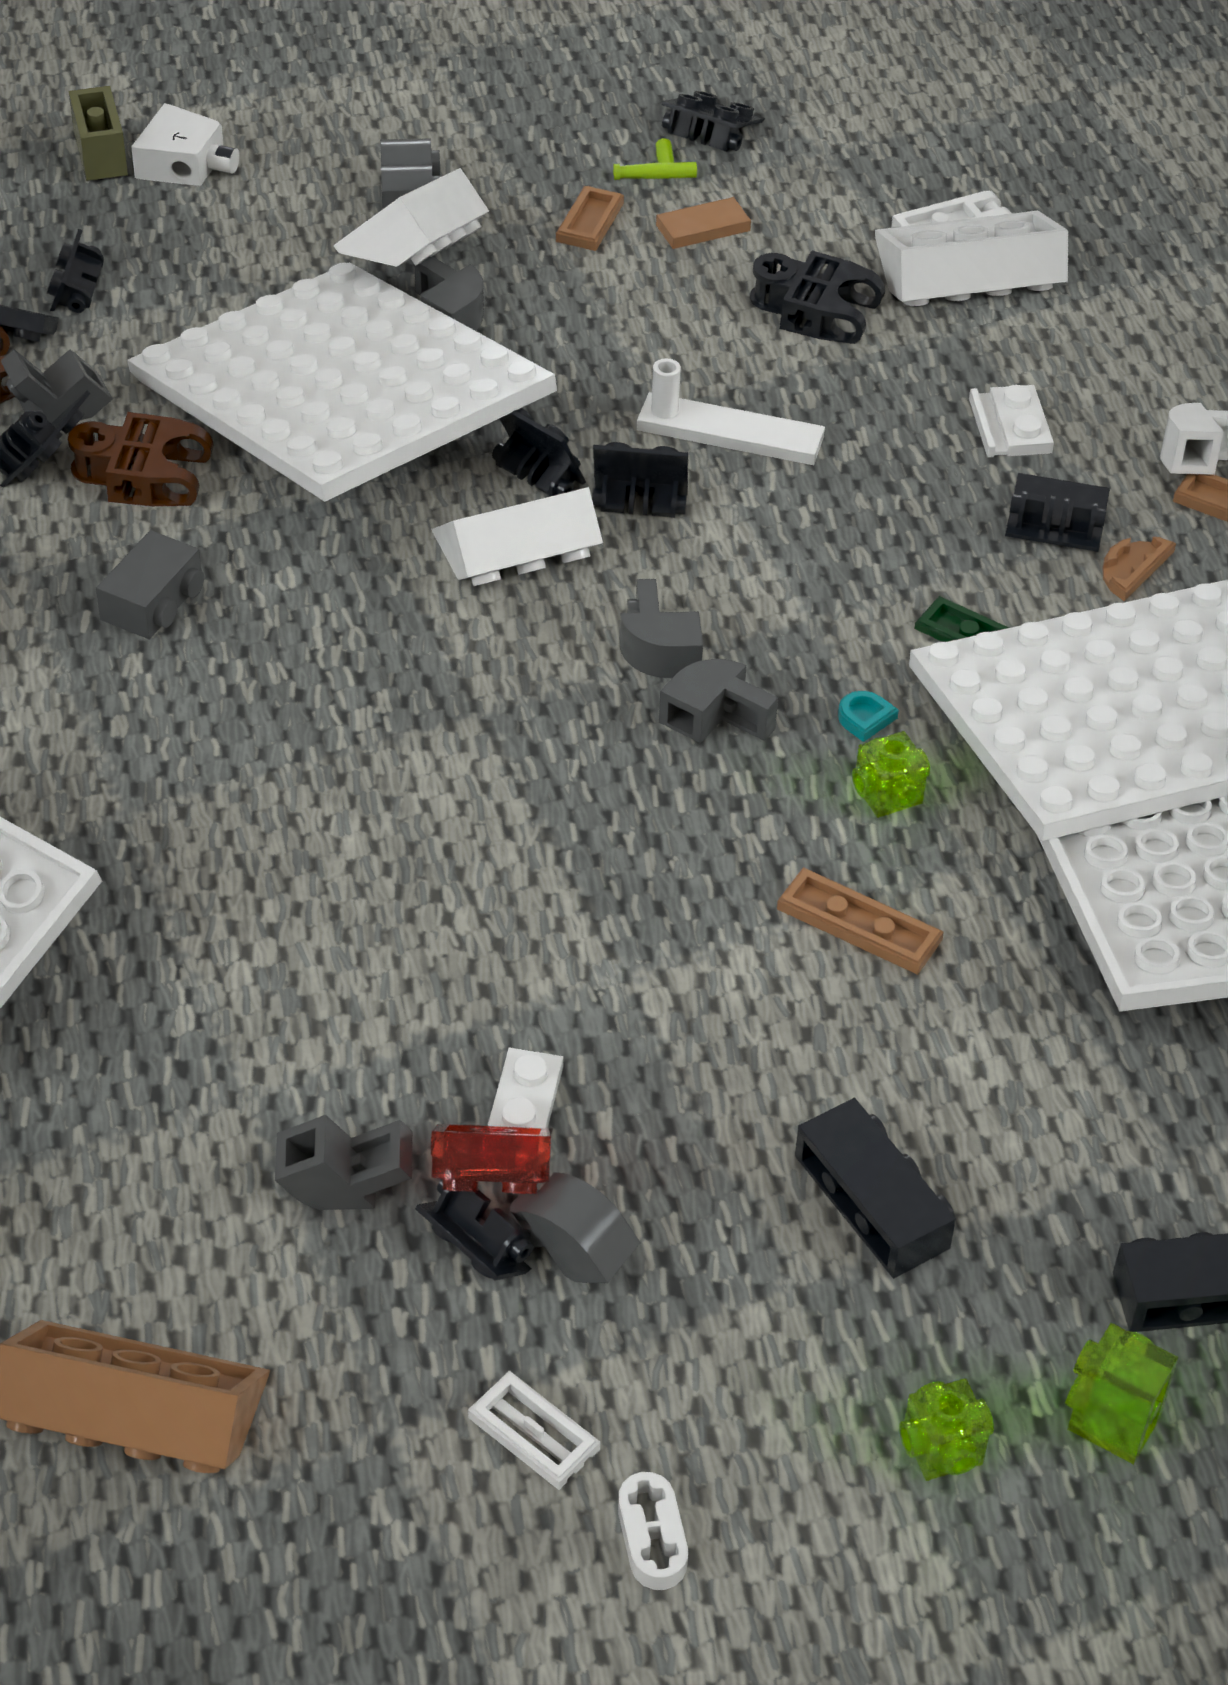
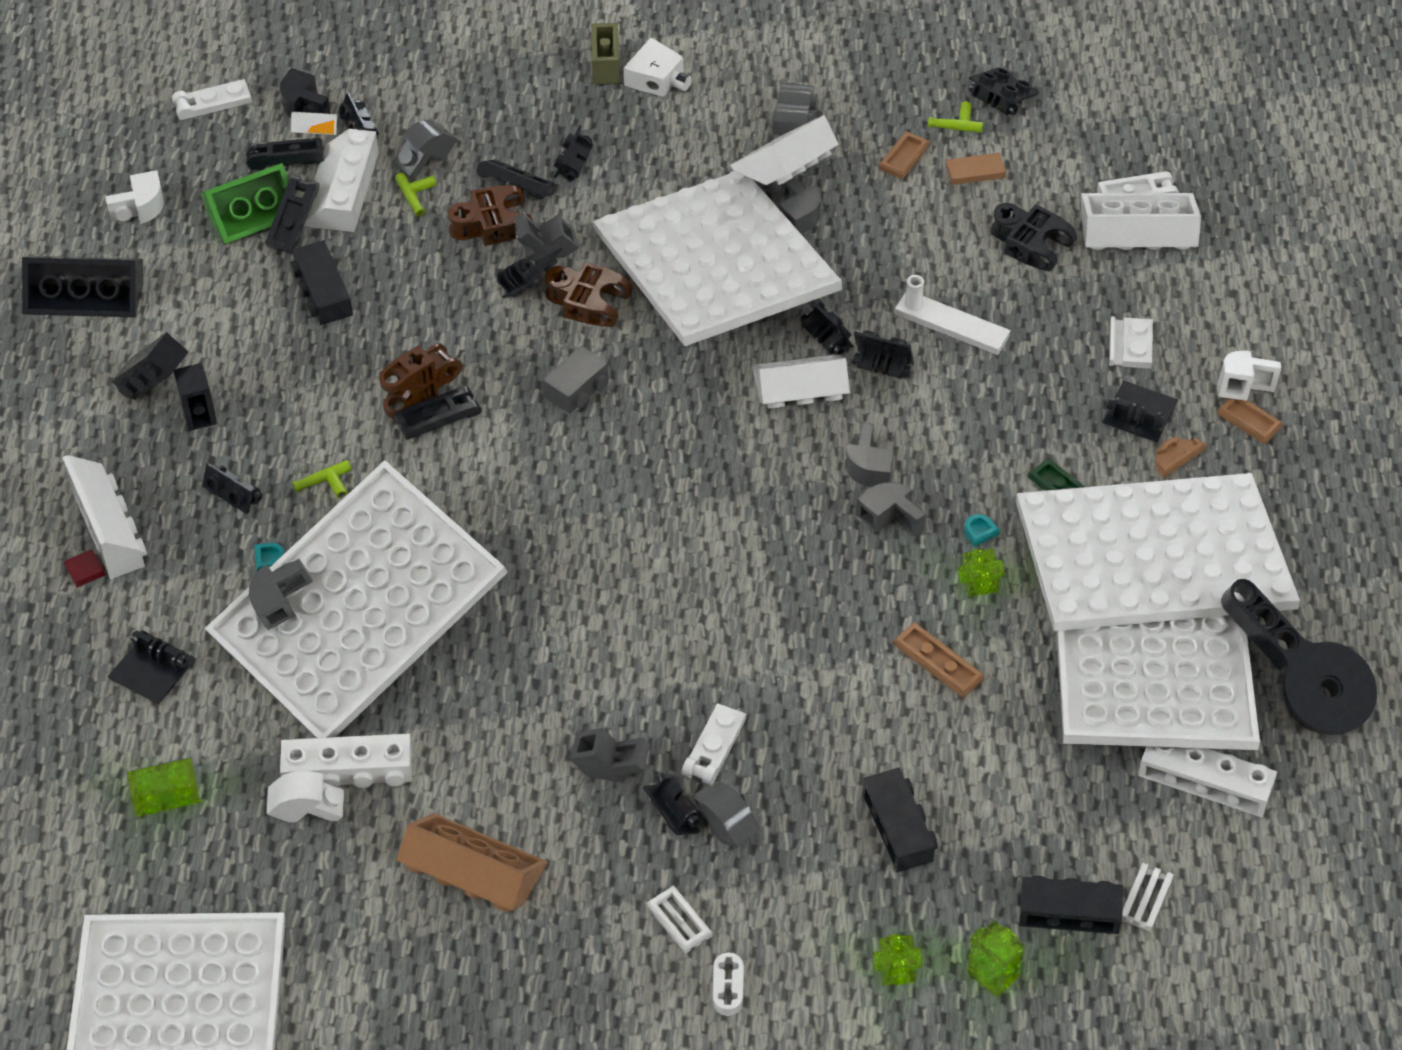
camera: 15 degrees right, 5 degrees up
(491, 1154) = (687, 765): clear red slope -> none

